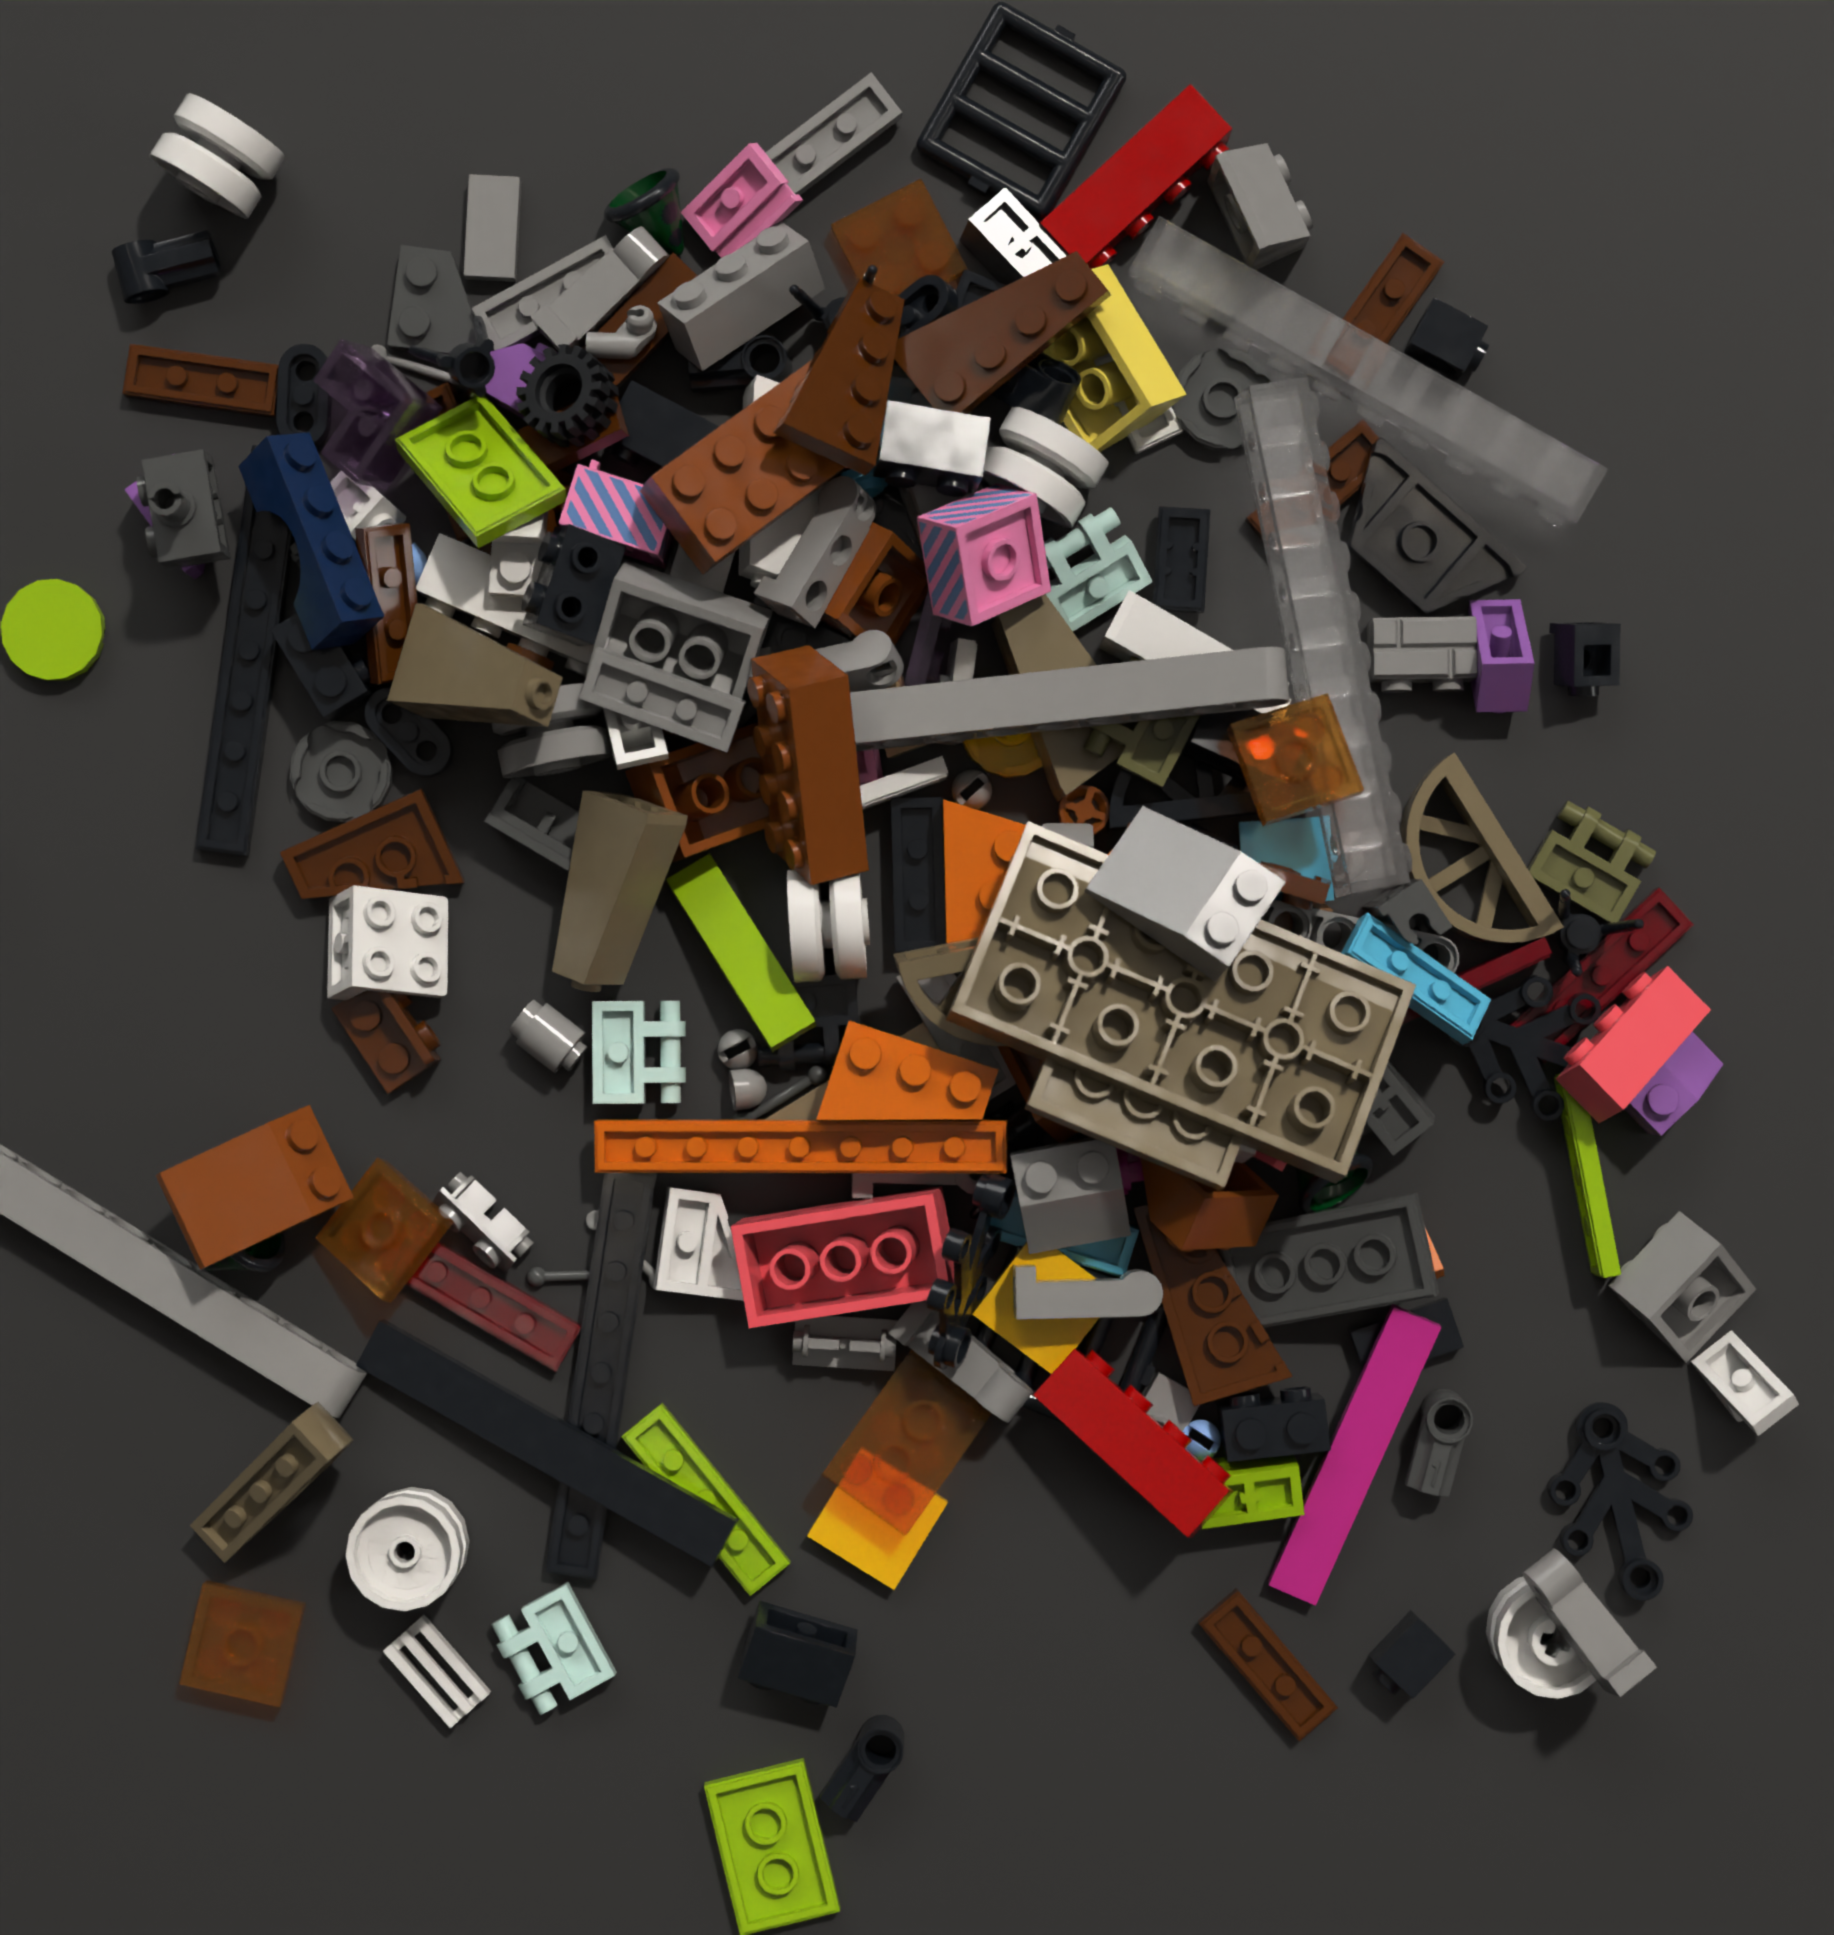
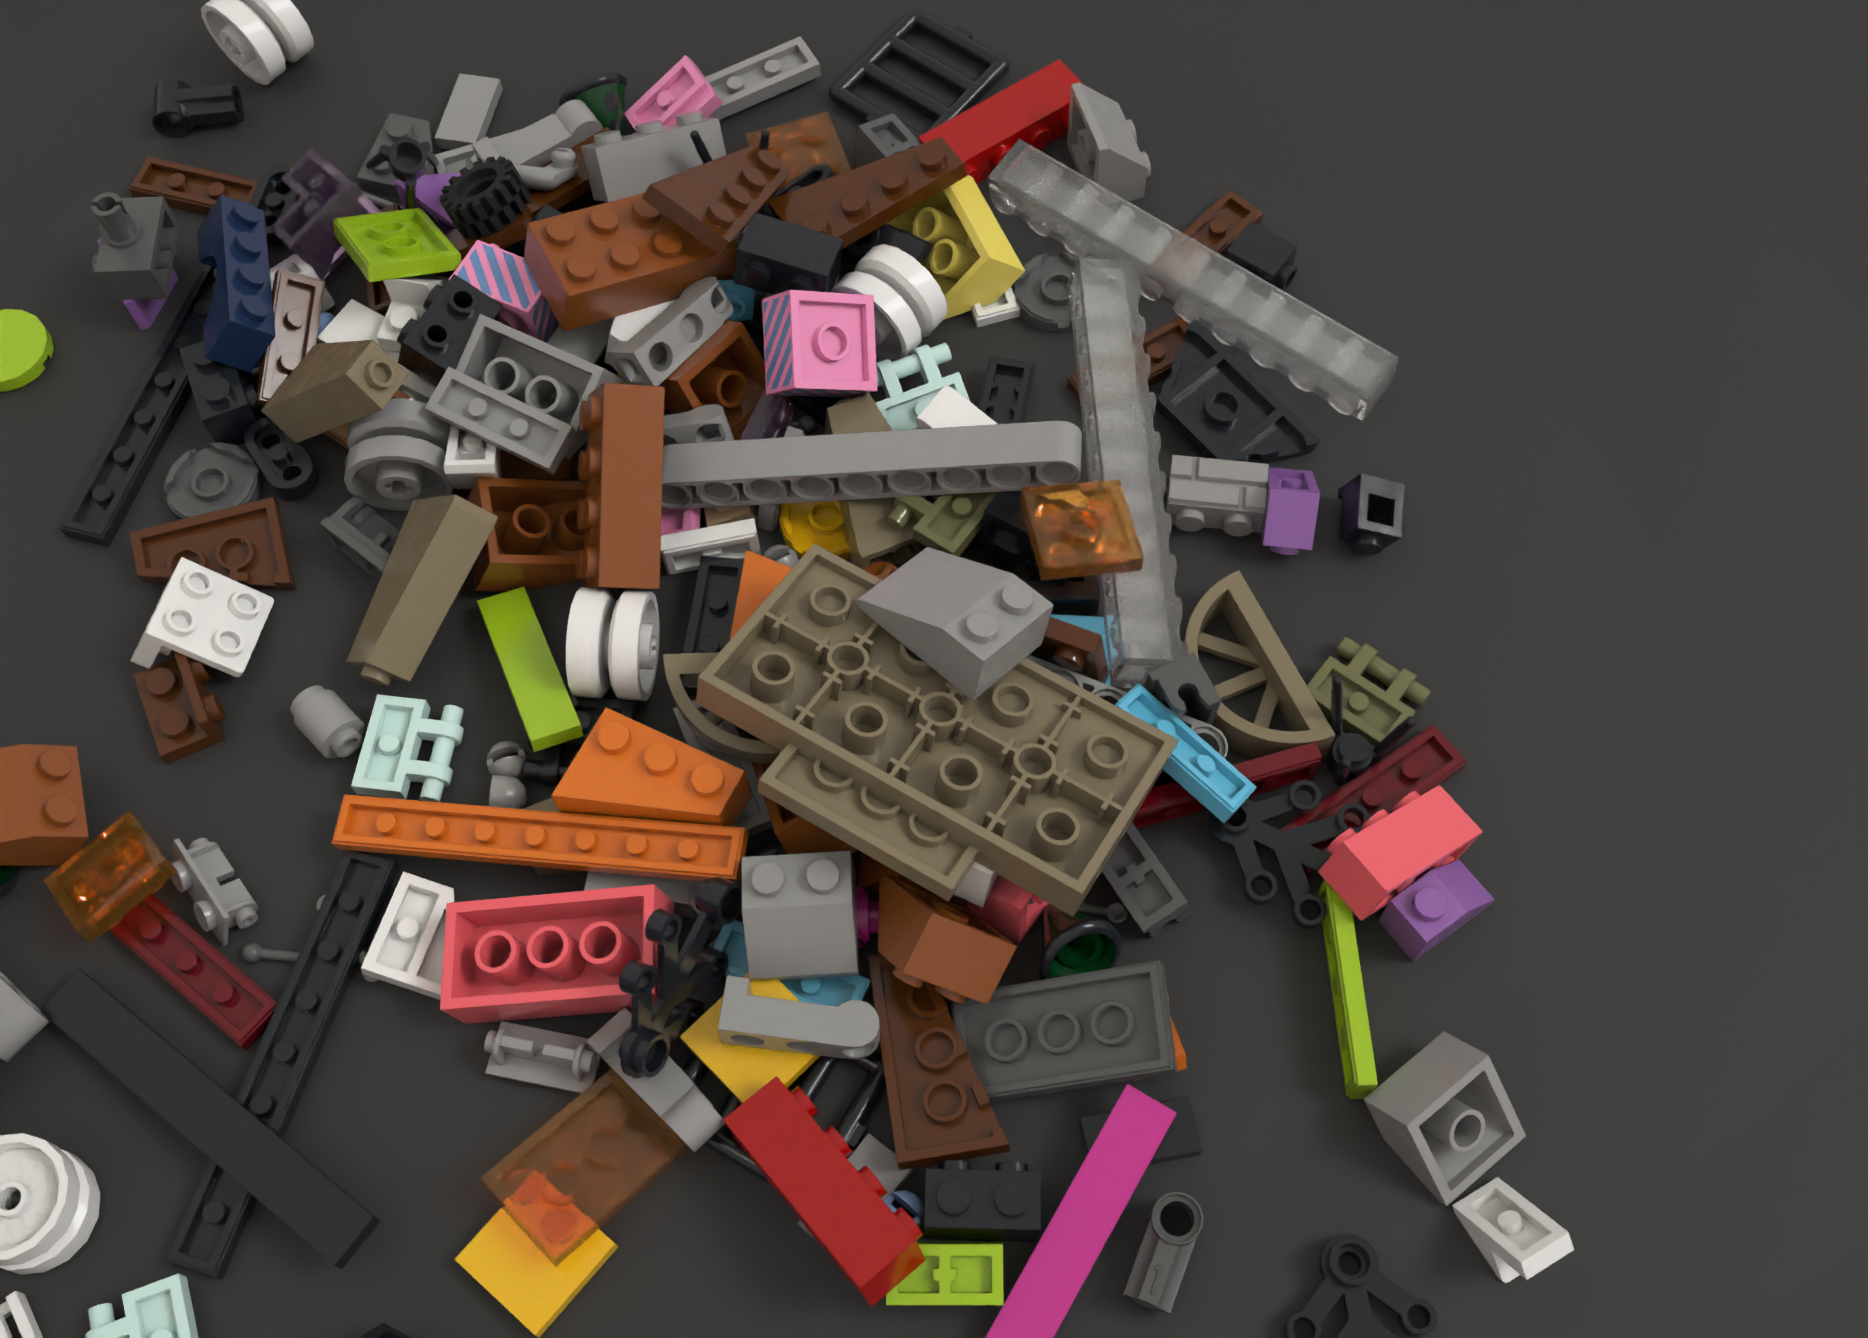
camera: 10 degrees right, 25 degrees down
(672, 1453) = (386, 1260): lime tile -> none

